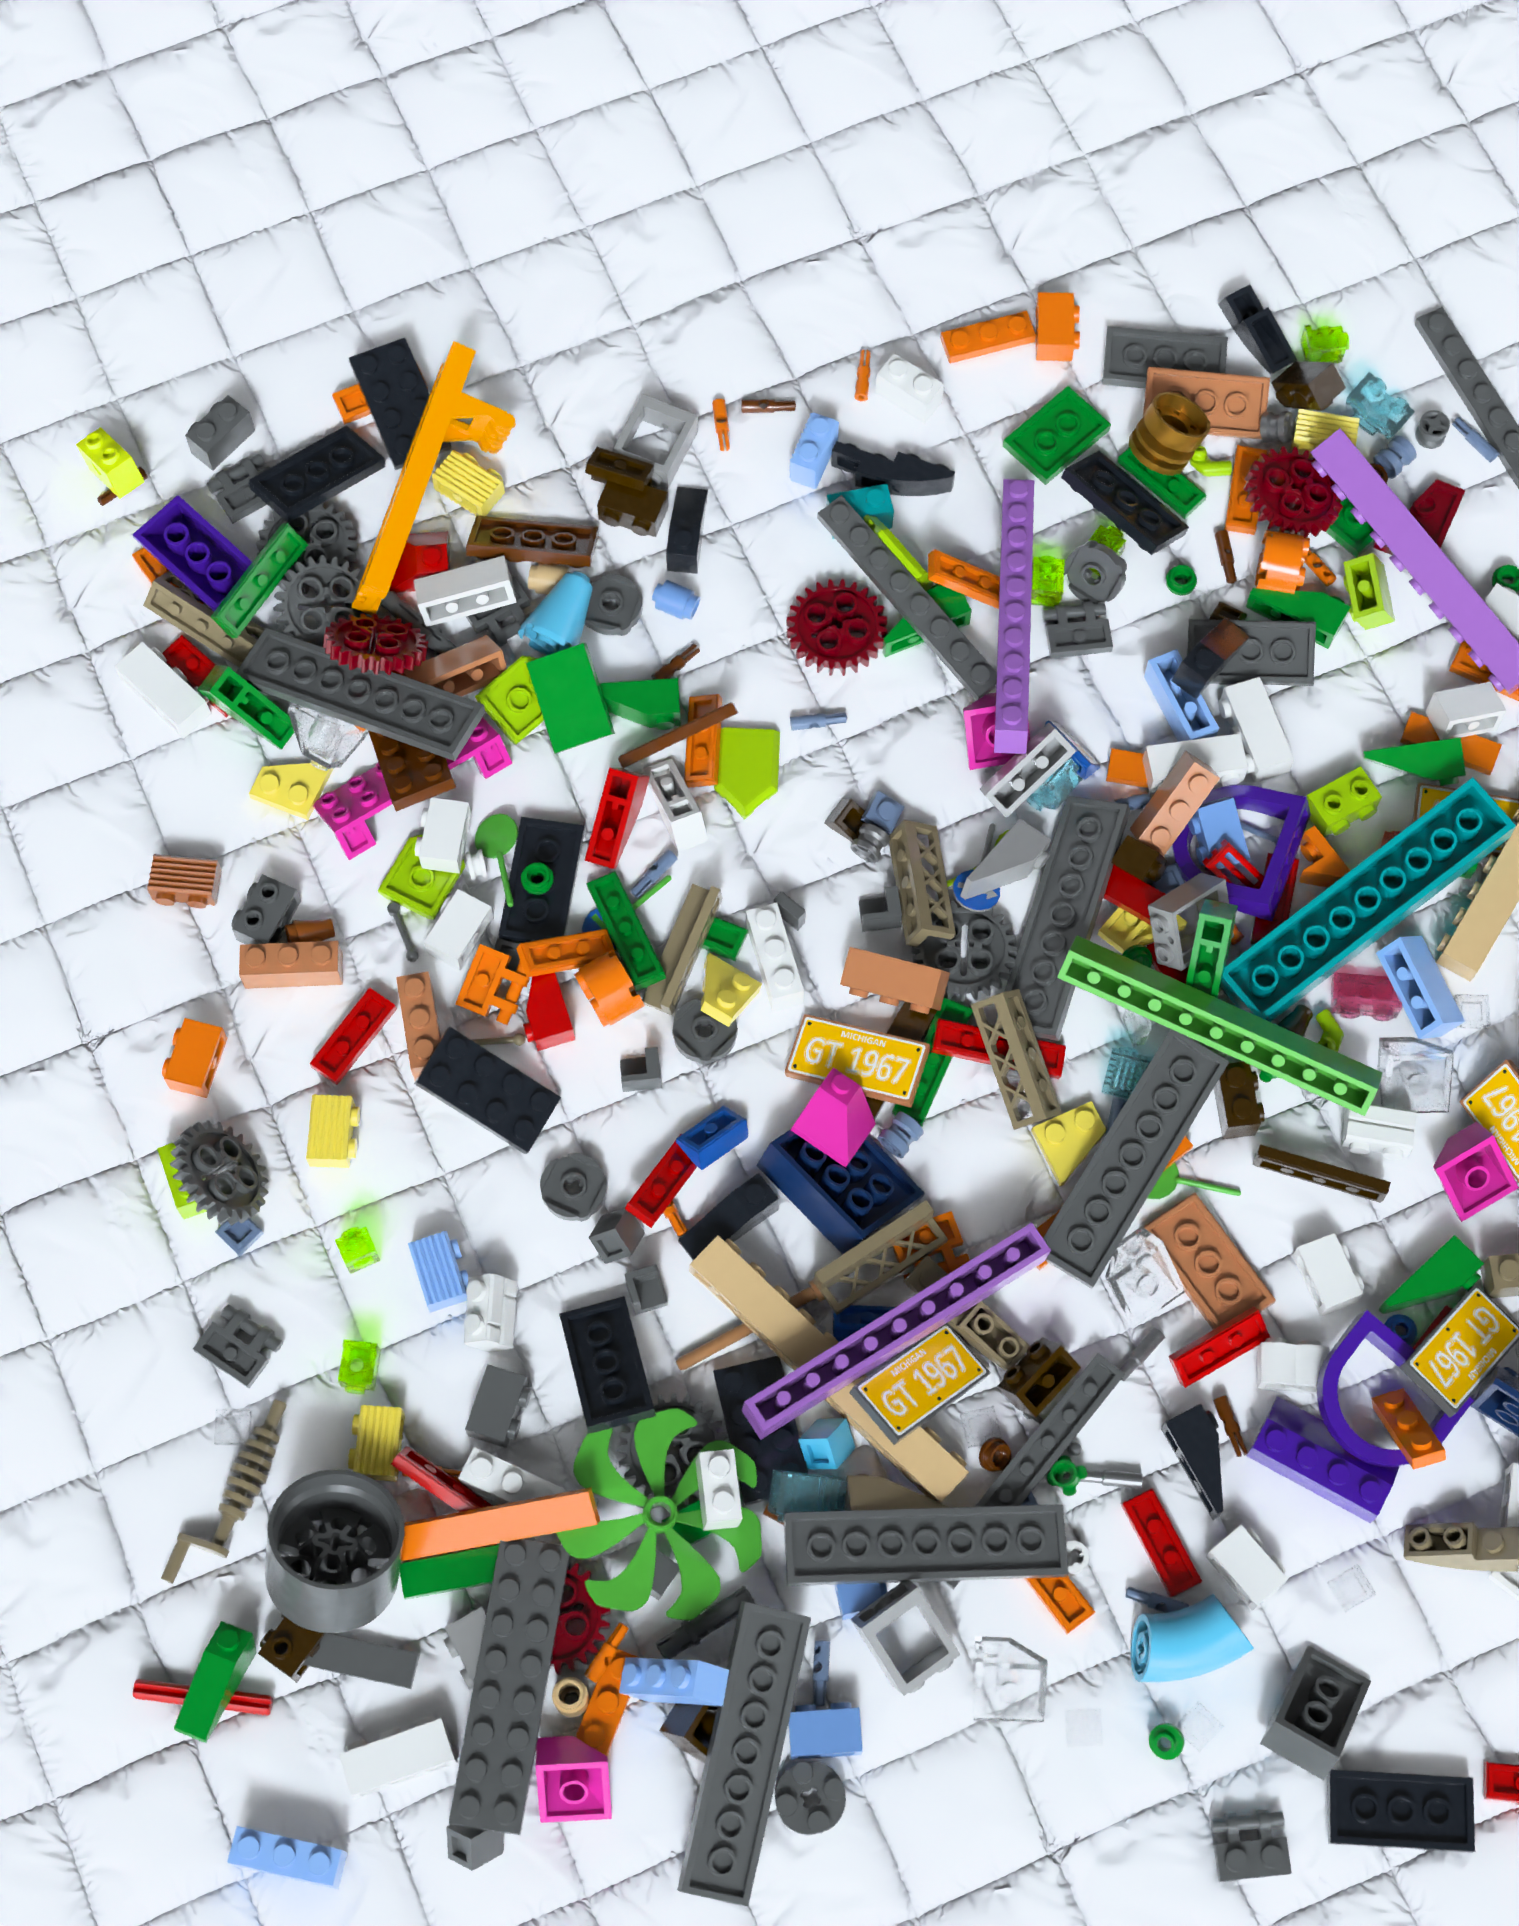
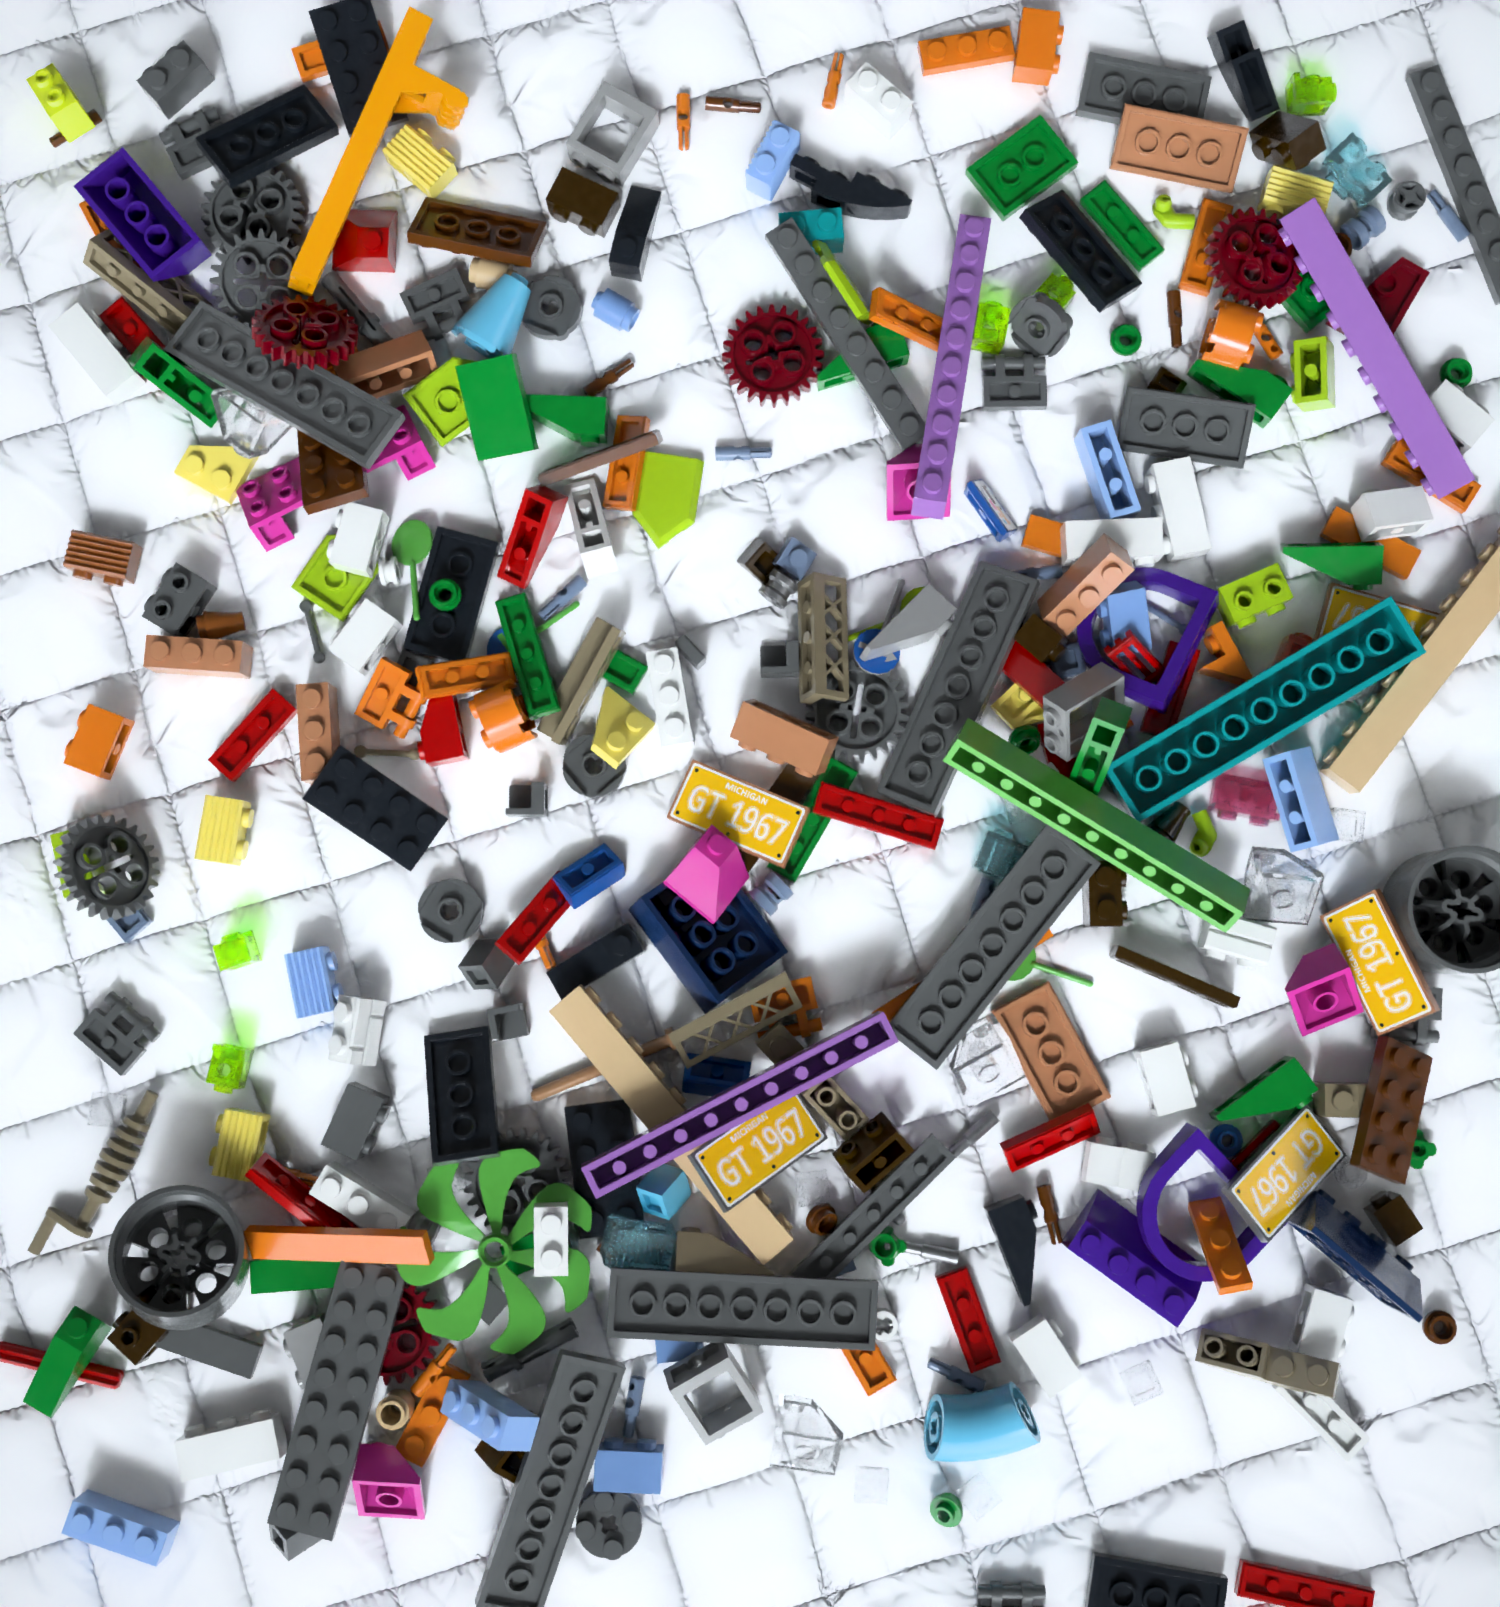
camera: 10 degrees right, 15 degrees up
(259, 580) = (195, 250): green tile -> none
(464, 591) = (402, 281): white brick -> none
(620, 469) = (572, 163): dark brown panel -> none
(1026, 1056) = (900, 832): dark tan fence -> none
(1027, 771) = (938, 539): light grey brick -> none
(1056, 787) = (965, 547): clear light blue cylinder -> none
(1069, 1139) = (934, 913): light yellow wing -> none
(1169, 433) = (1136, 180): pearl gold wheel -> none
(1209, 658) = (1143, 433): black slope -> none
(1277, 427) = (1247, 182): flat silver wheel -> none
(1316, 1713) = (1091, 1500): dark grey slope -> none

